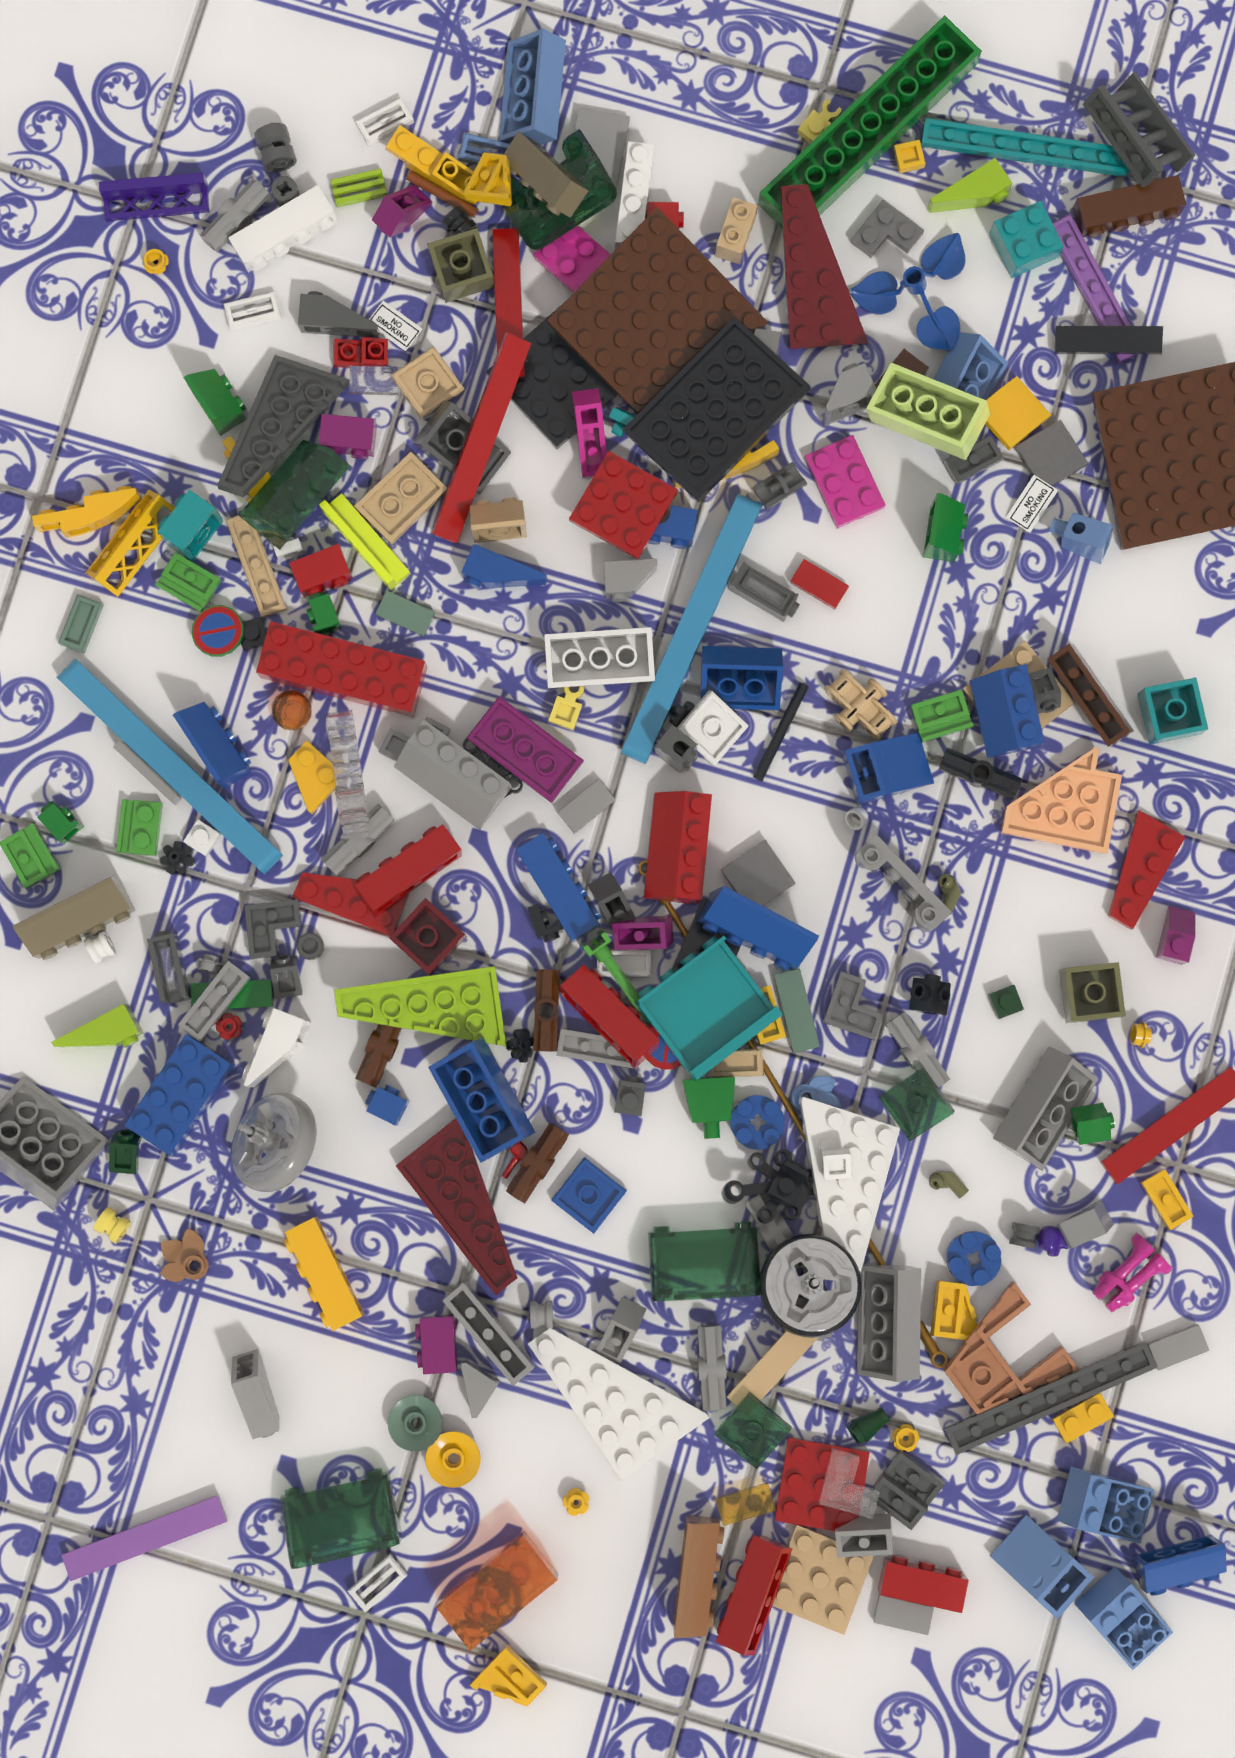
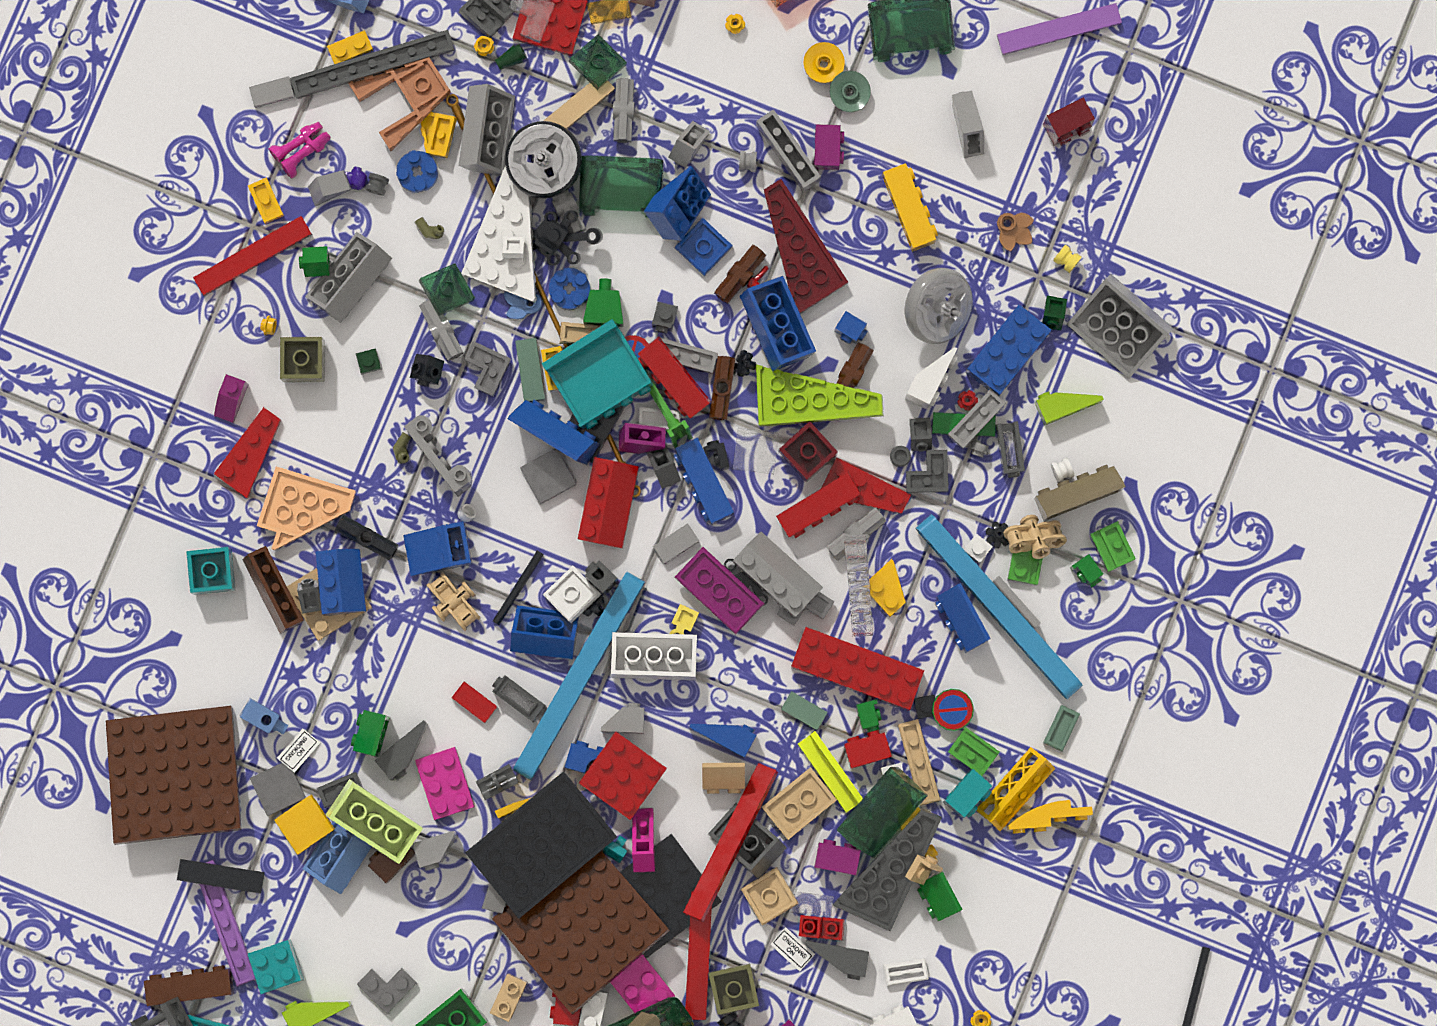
camera: 175 degrees left, 0 degrees up
(114, 1412) = (1068, 122): none -> dark red brick
(128, 856) = (1035, 536): none -> tan axle
(237, 424) = (922, 868): none -> tan bracket
(291, 710) = (900, 642): clear orange hair -> none
(478, 1386) = (799, 113): light grey slope -> none
(496, 935) = (755, 450): none -> clear tile
(619, 1409) = (696, 87): white wing -> none
(627, 1244) = (678, 205): none -> blue slope
(816, 292) = (450, 938): dark red wing -> none
(878, 290) = (399, 934): blue plant -> none
(908, 503) = (399, 756): none -> dark grey slope
(941, 716) = (391, 586): bright green plate -> none

